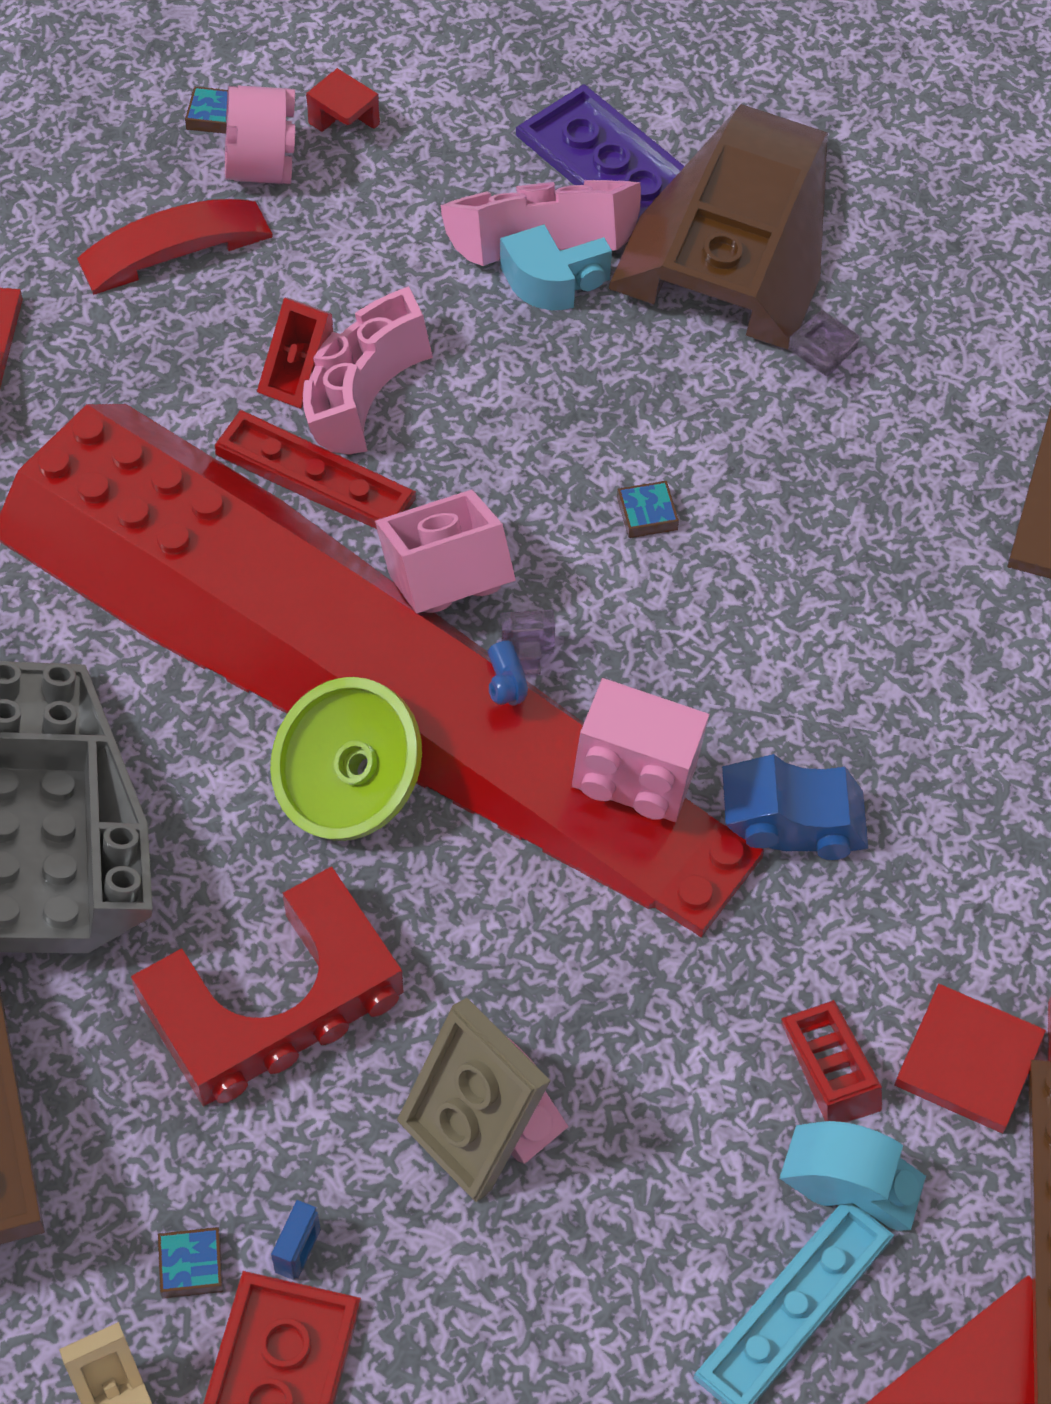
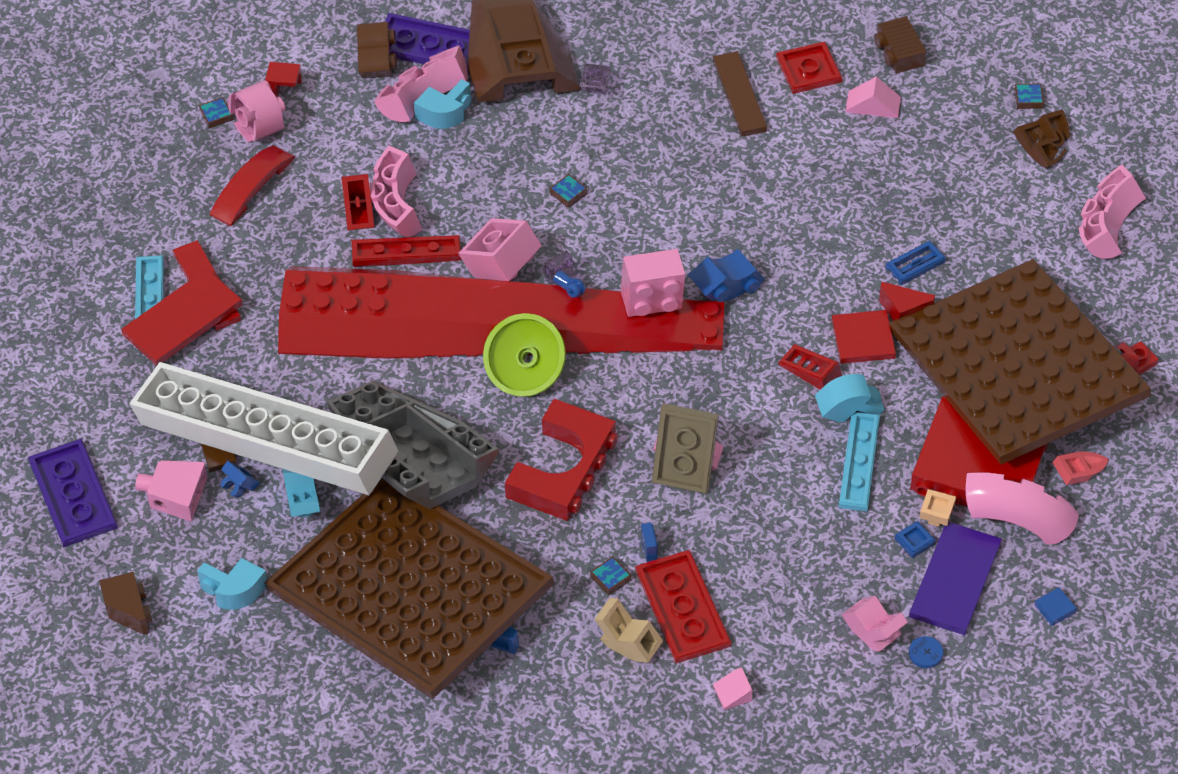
camera: 30 degrees left, 5 degrees down
(511, 128) = (375, 50): none -> reddish brown brick

